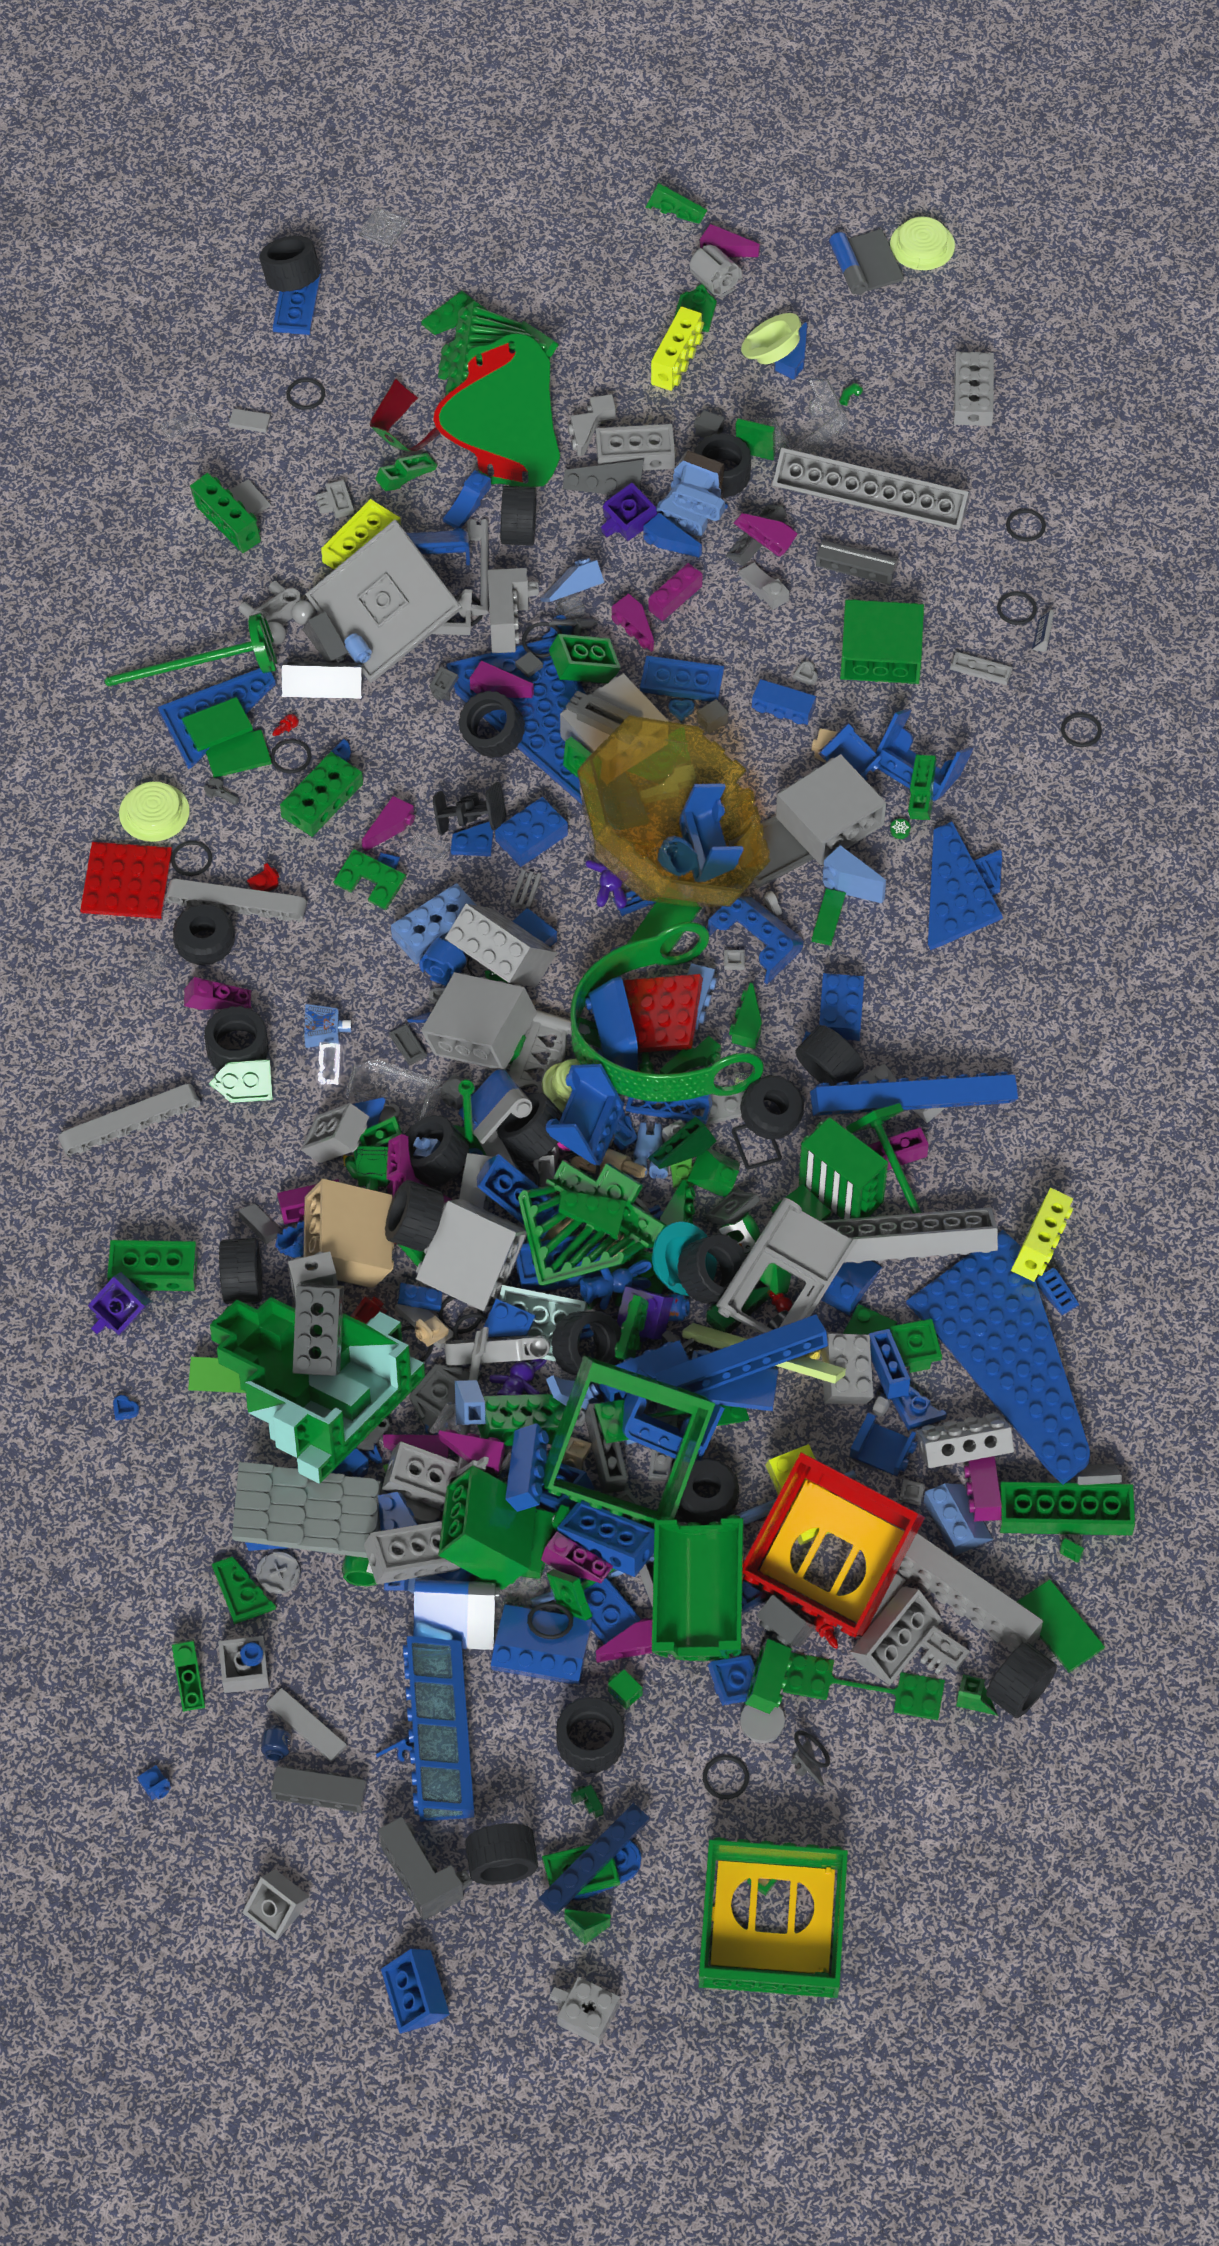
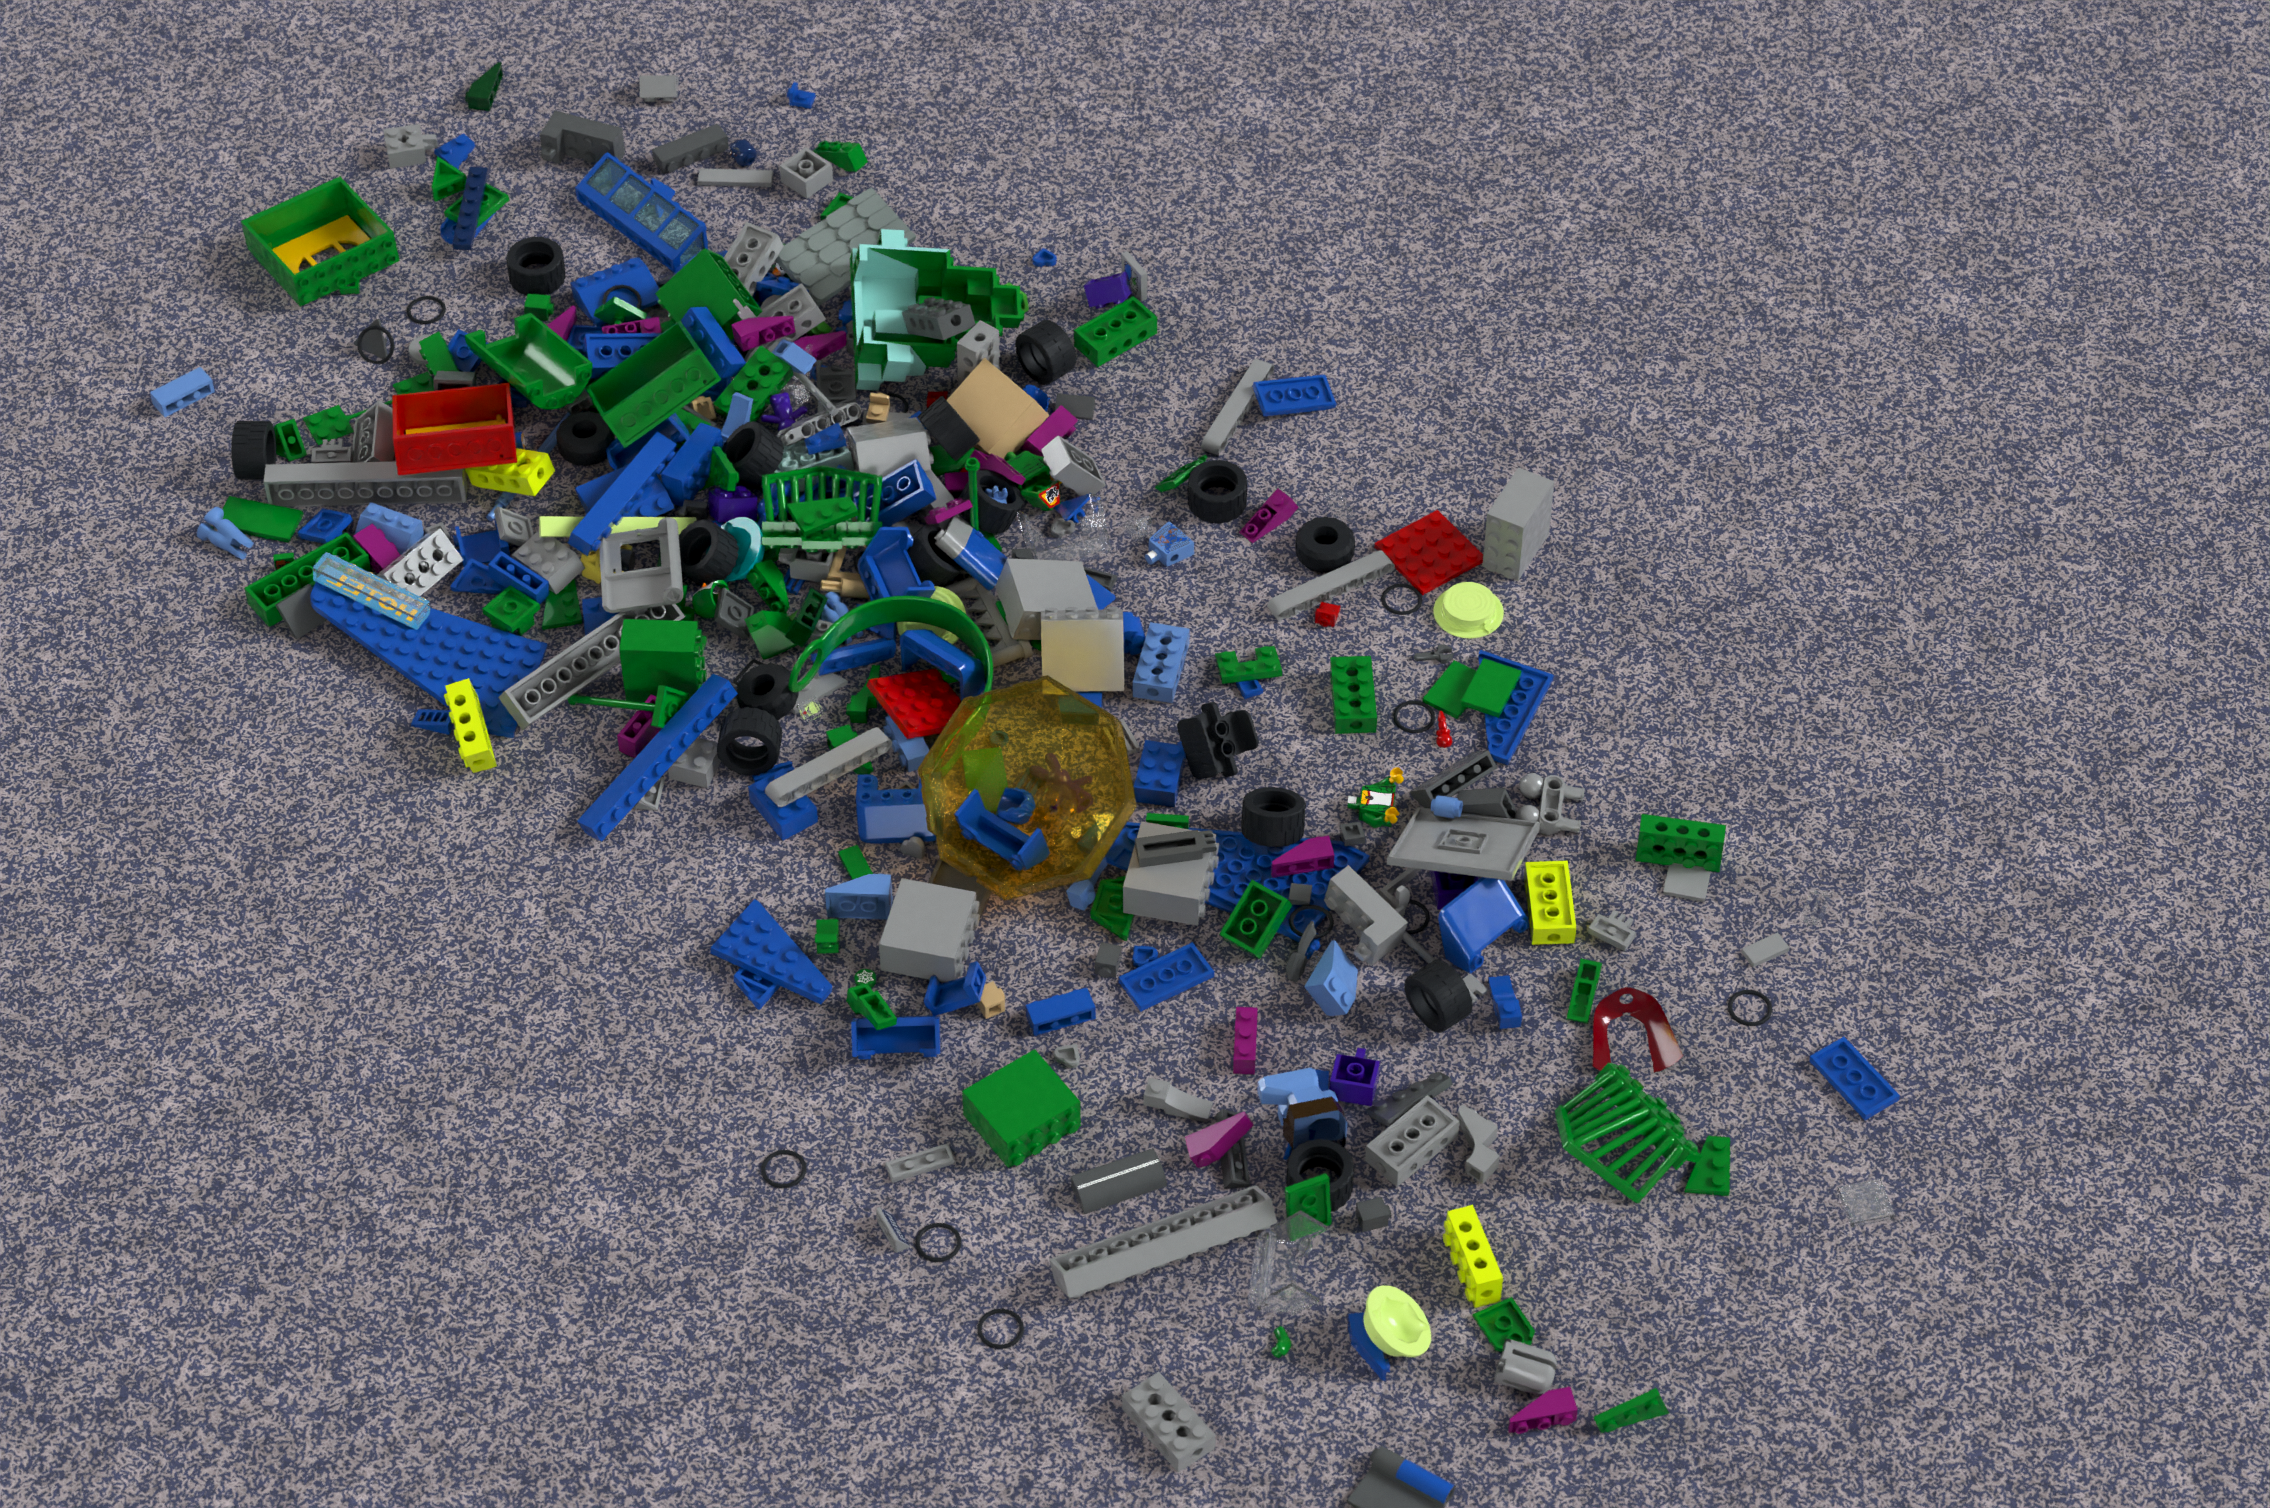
camera: 140 degrees right, 10 degrees down
(55, 815) = (1518, 524): none -> light grey brick
(75, 1093) = (1294, 395): none -> blue tile
(79, 1307) = (1136, 275): none -> light grey tile
(251, 1654) = (801, 167): blue tile -> none
(260, 643) = (1521, 742): green piece -> none
(290, 263) = (1905, 1074): black tyre -> none
(343, 750) = (1377, 743): blue tile -> none
(390, 822) = (1278, 715): magenta slope -> none
(397, 698) = (1378, 800): none -> torso
(415, 1990) = (525, 98): blue slope -> none
(448, 2036) = (484, 89): none -> dark green slope
(491, 1134) = (953, 508): none -> magenta plate
(501, 1853) = (531, 169): black tyre -> none
(504, 412) = (1551, 1079): green piece -> none
(539, 1974) = (456, 150): none -> blue wing
(591, 1801) = (503, 241): dark green bracket -> none
(631, 616) = (1251, 993): magenta slope -> none
(646, 1066) = (892, 668): green bar -> none
(788, 990) = (828, 767): none -> light grey beam
(846, 1433) = (513, 526): none -> light grey tile
(904, 871) = (827, 936): none -> green brick
(1009, 1562) = (325, 526): none -> blue hinge
(1031, 1833) = (182, 392): none -> medium blue brick
(1032, 1419) = (371, 590): none -> clear brick
(1106, 1619) = (227, 535): none -> medium blue piece

